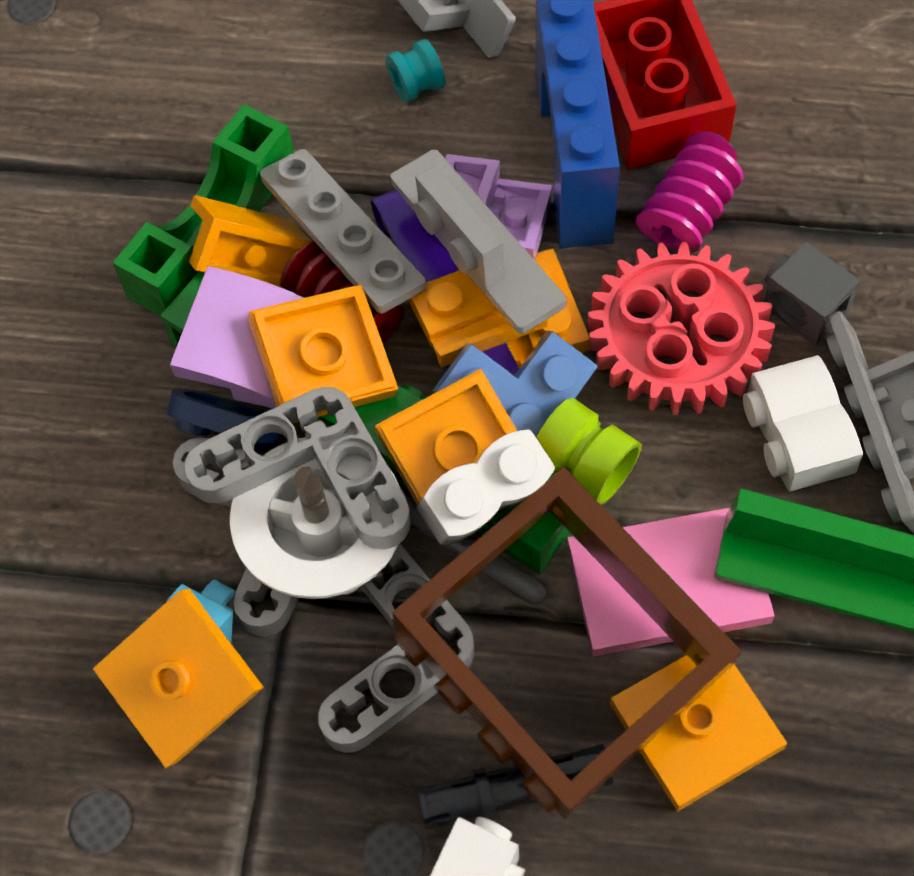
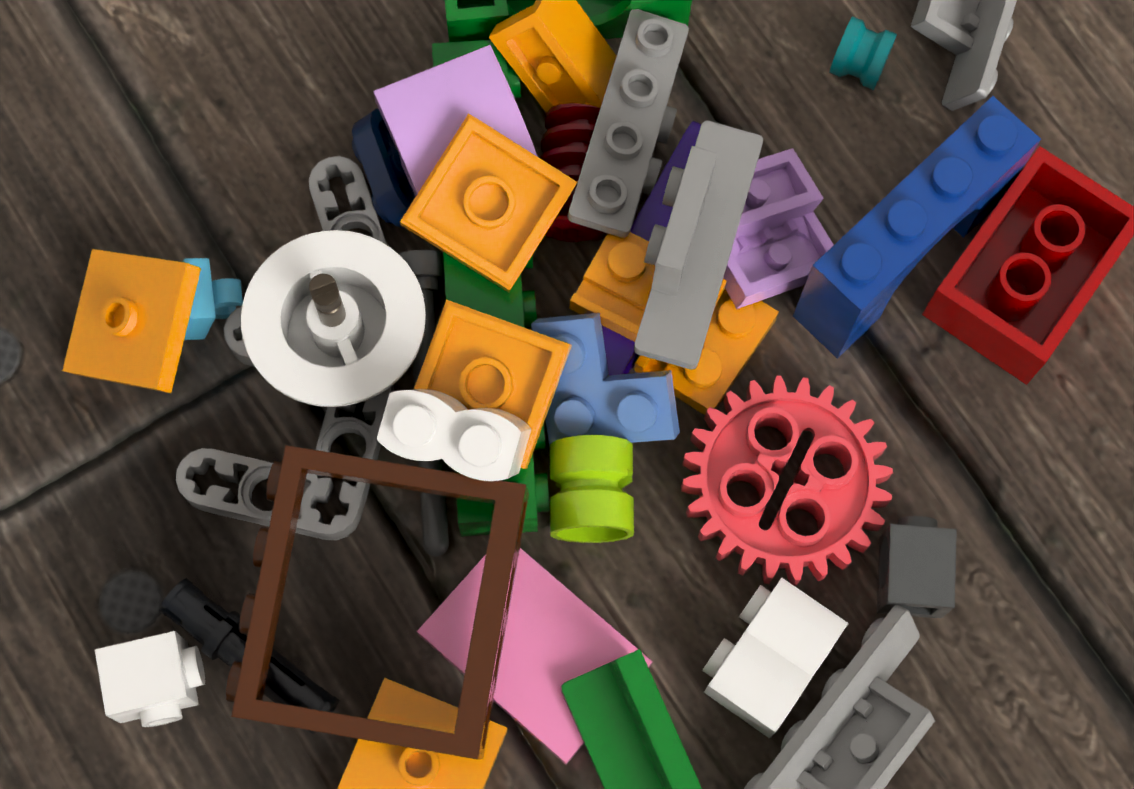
camera: 45 degrees right, 10 degrees up
(324, 444) = (391, 279): light grey beam -> none
(692, 193) = (932, 389): dark pink piece -> none

